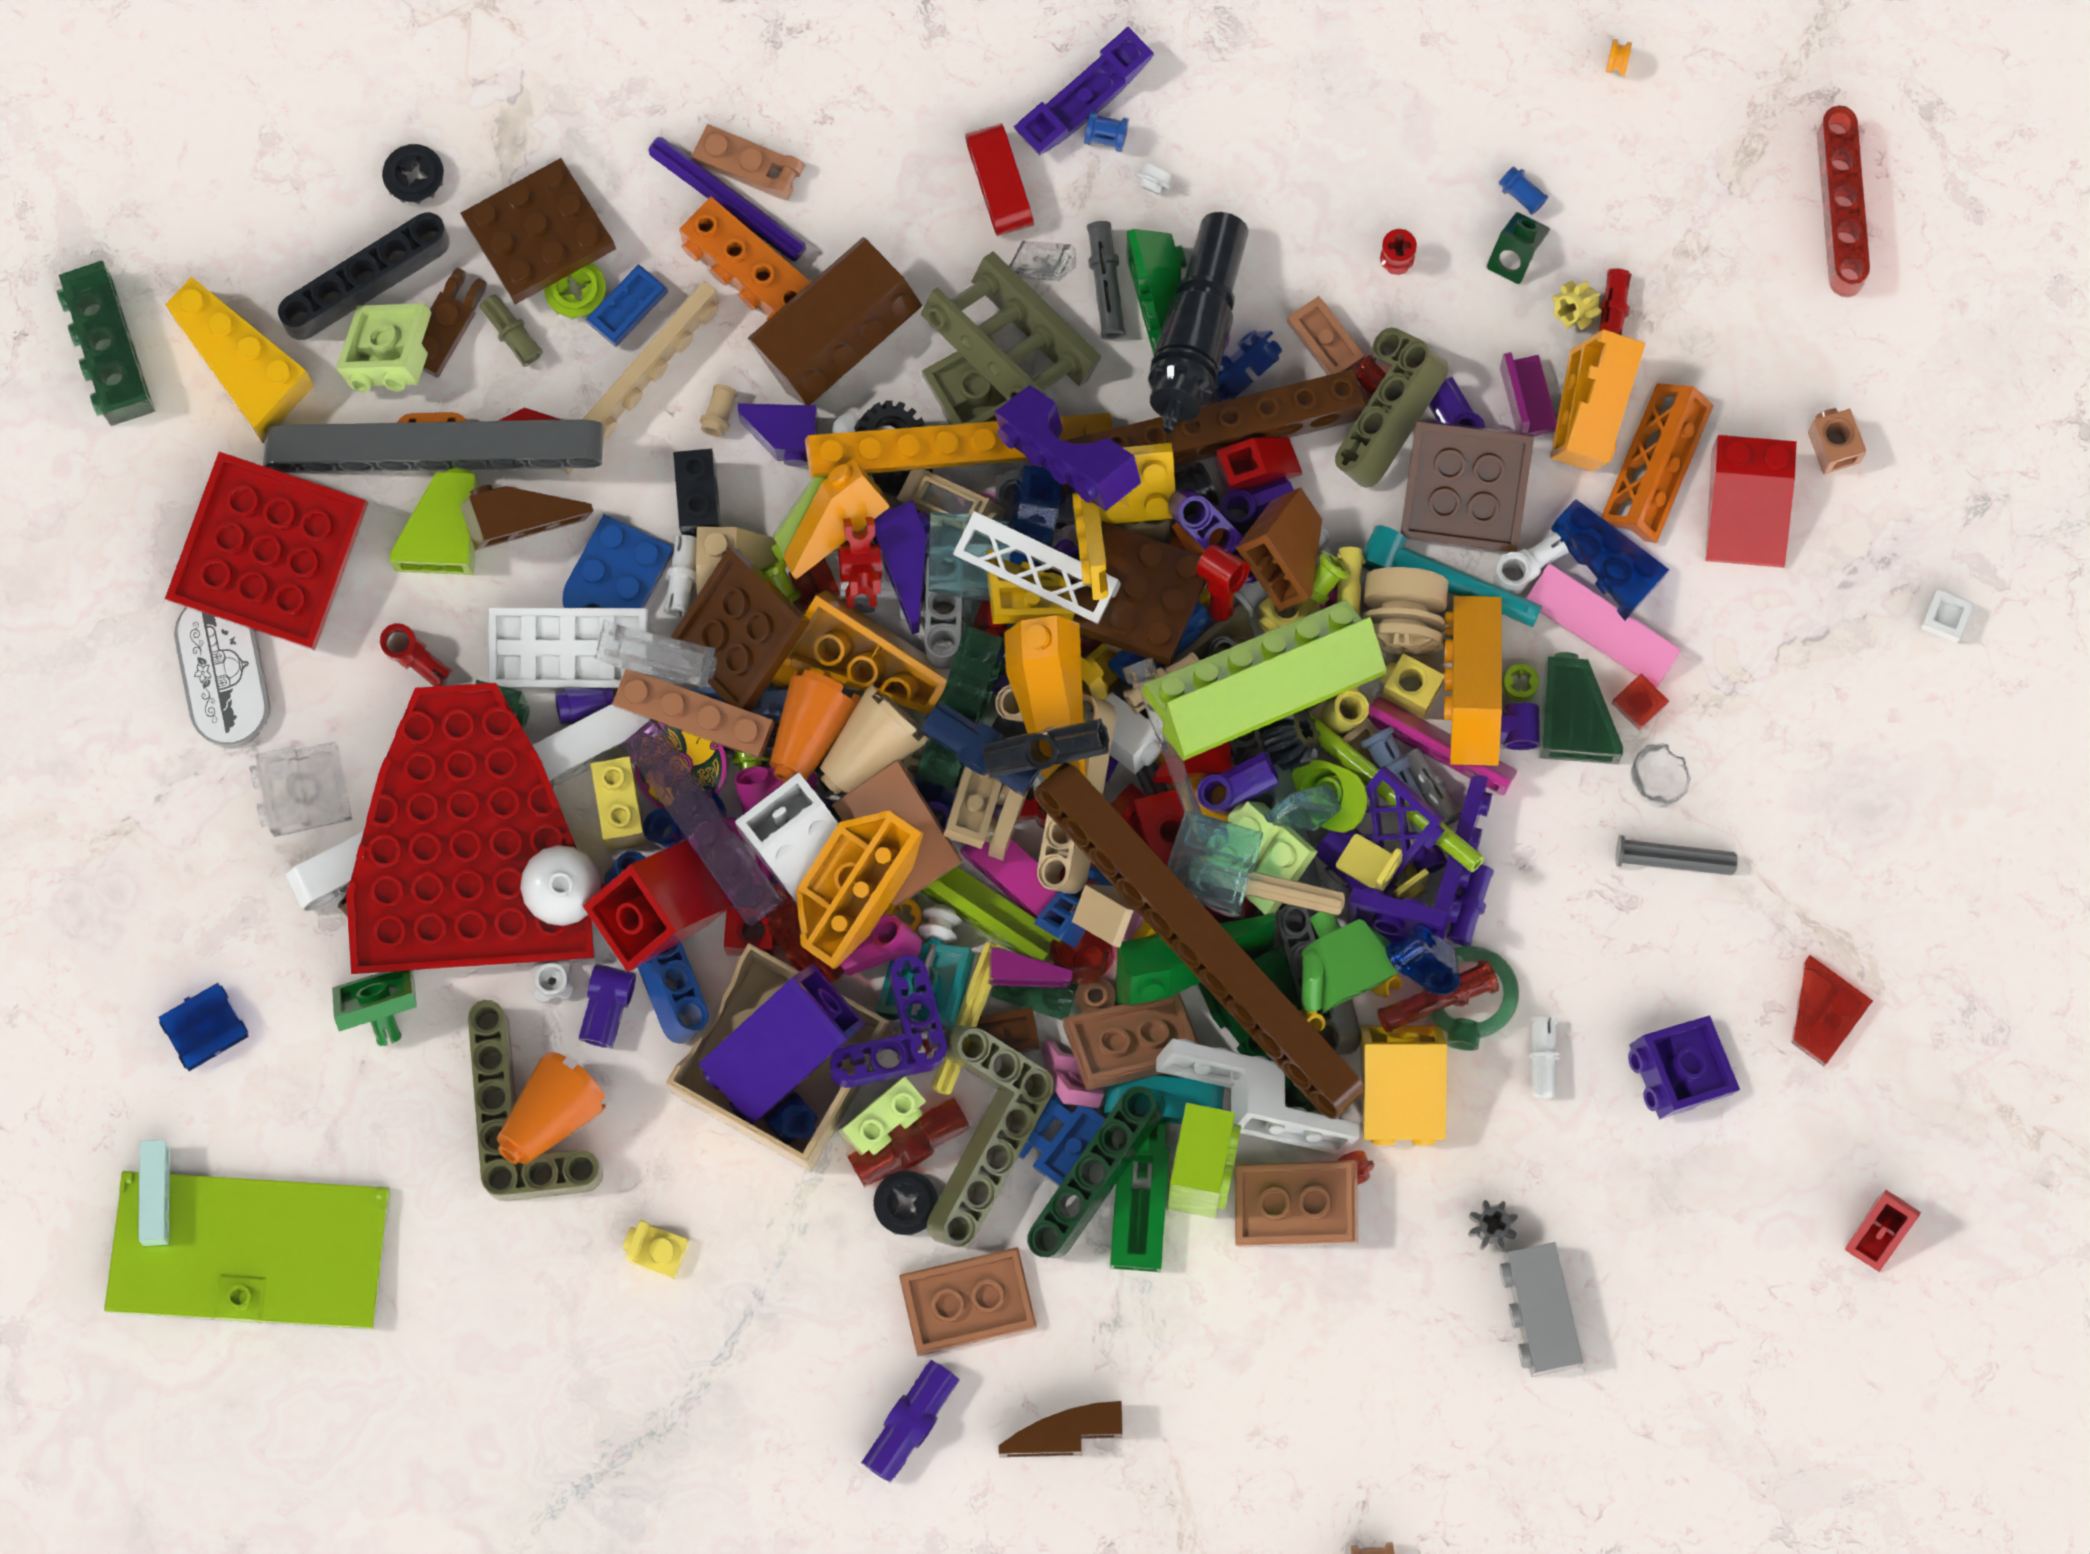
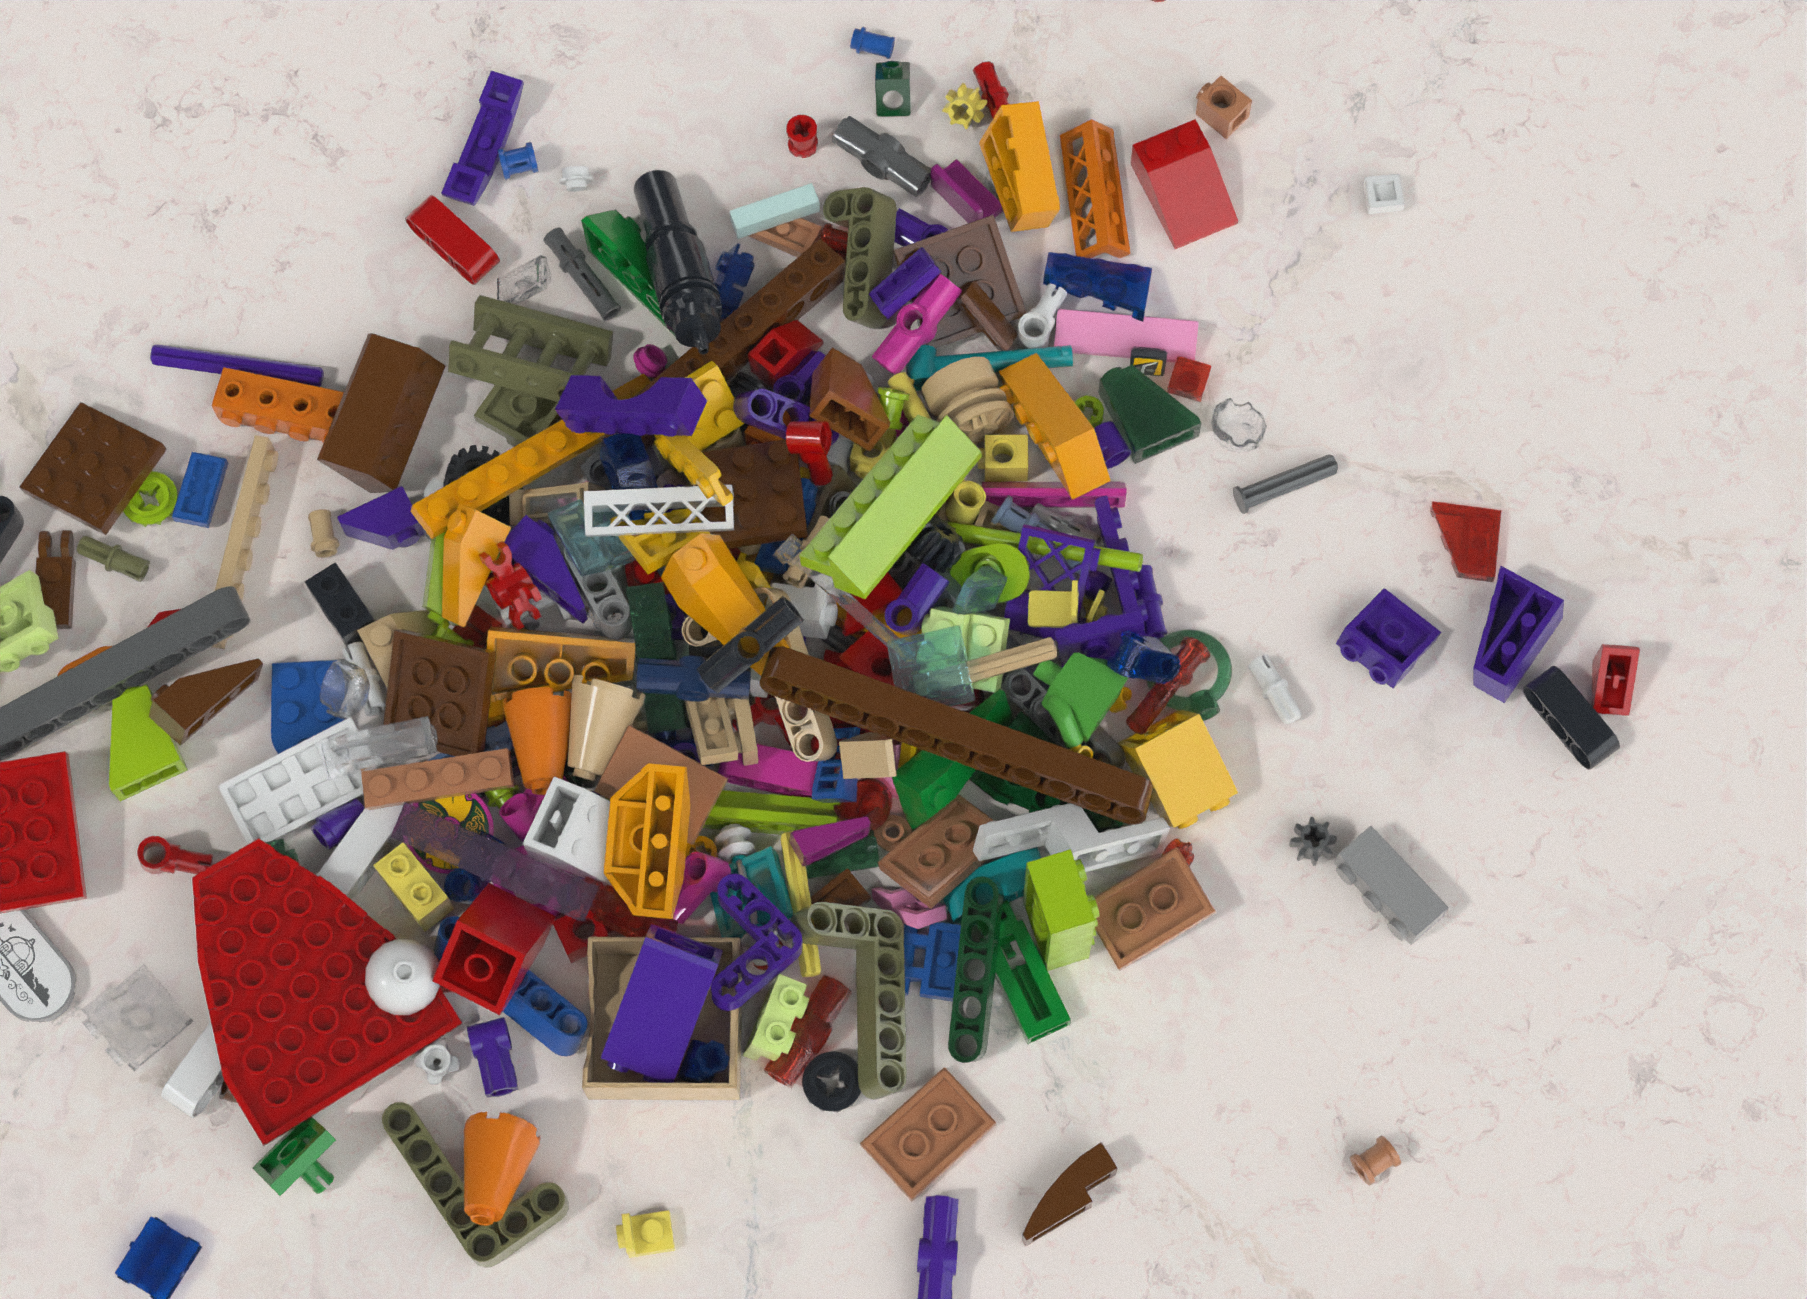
camera: 30 degrees left, 5 degrees down
(655, 578) = (345, 689): none -> clear hair
(747, 162) = (238, 329): nougat plate -> none
(1123, 404) = (650, 360): none -> dark pink plate
(1326, 316) = (774, 210): none -> light aqua piece
(1407, 460) = (905, 282): none -> dark purple plate
(1420, 498) = (902, 341): none -> dark pink piece
(1466, 313) = (882, 156): none -> dark grey piece
(1475, 533) = (987, 316): none -> reddish brown slope
(1610, 661) = (1149, 360): none -> slope
(1808, 1131) = (1514, 634): none -> dark purple wedge
(1818, 1243) = (1571, 717): none -> black beam

